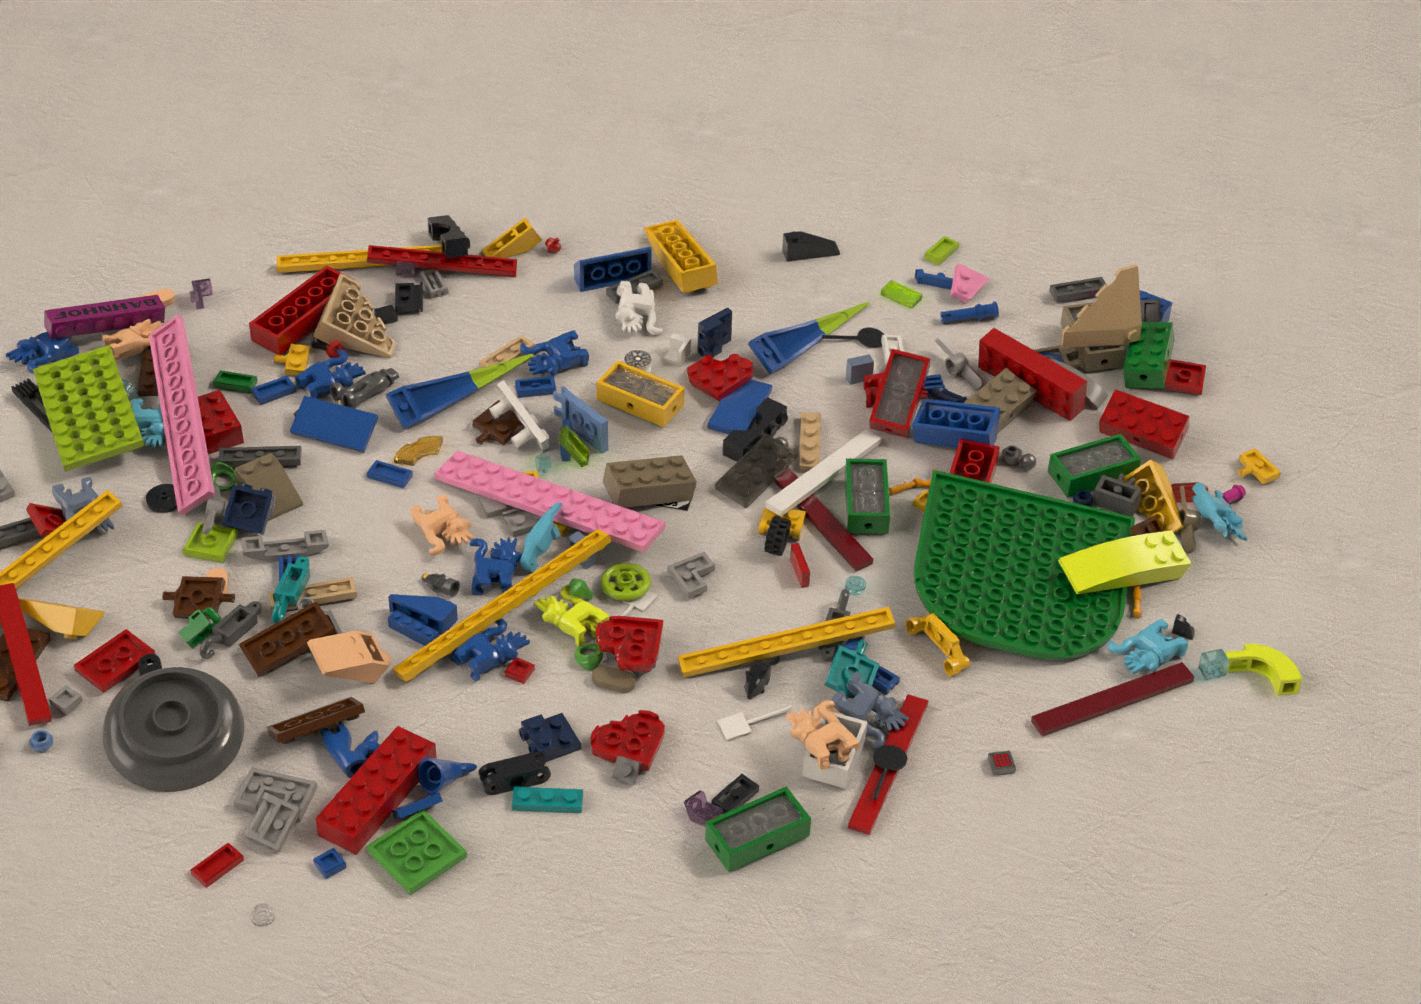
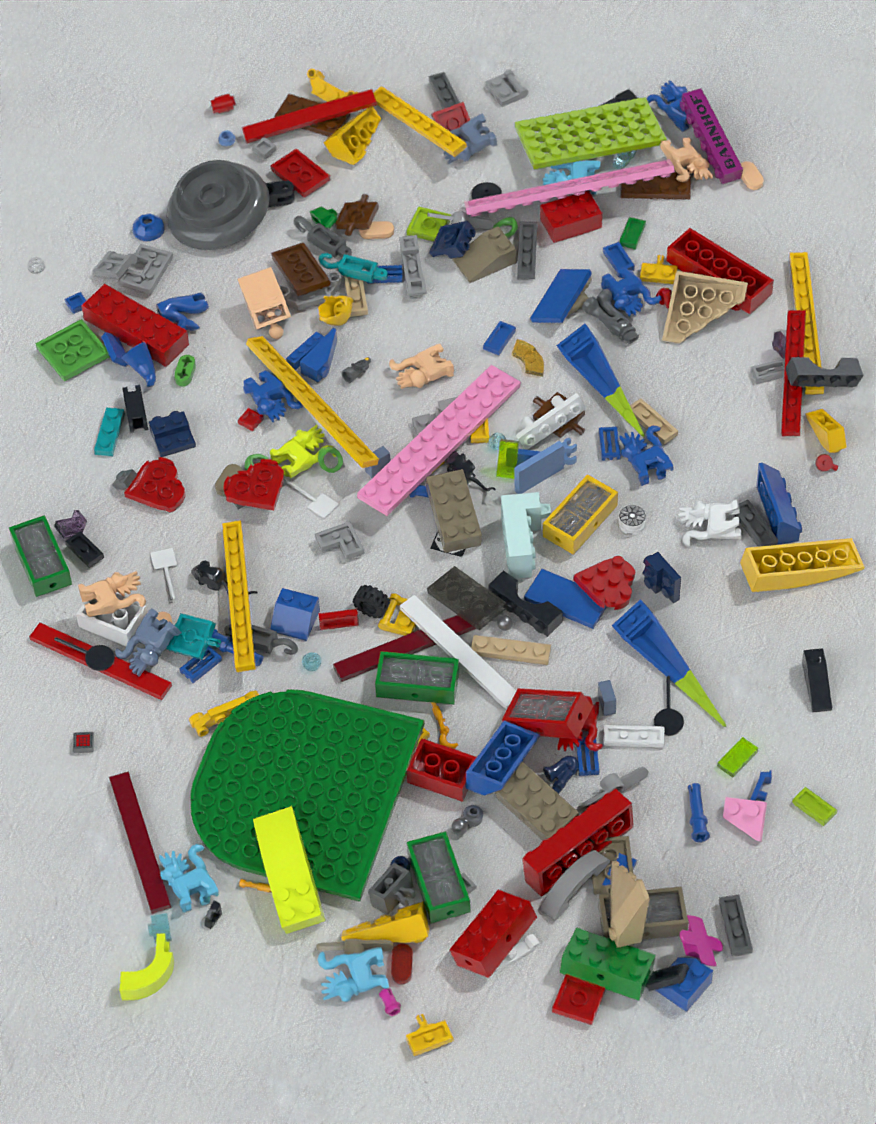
camera: 100 degrees right, 10 degrees up
(199, 811) = (149, 231): none -> blue piece
(200, 289) = (754, 200): bracket -> none
(217, 865) = (89, 241): red tile -> none
(309, 722) = (210, 286): reddish brown plate -> none
(356, 599) = (335, 310): none -> yellow hair
(386, 314) = (721, 335): black tile -> none
(408, 297) = (743, 350): black plate -> none
(446, 737) = (188, 371): none -> bright green beam
(494, 569) = (363, 403): blue animal -> none
(540, 538) = (389, 429): medium azure animal -> none
(586, 481) = (459, 462): none -> black animal
(625, 581) = (338, 488): lime plate -> none
(675, 431) = (519, 518): none -> light aqua hinge
(679, 349) = (642, 552): white panel -> none
(799, 600) = (295, 614): none -> blue slope
(1147, 526) = (340, 906): reddish brown plate -> none

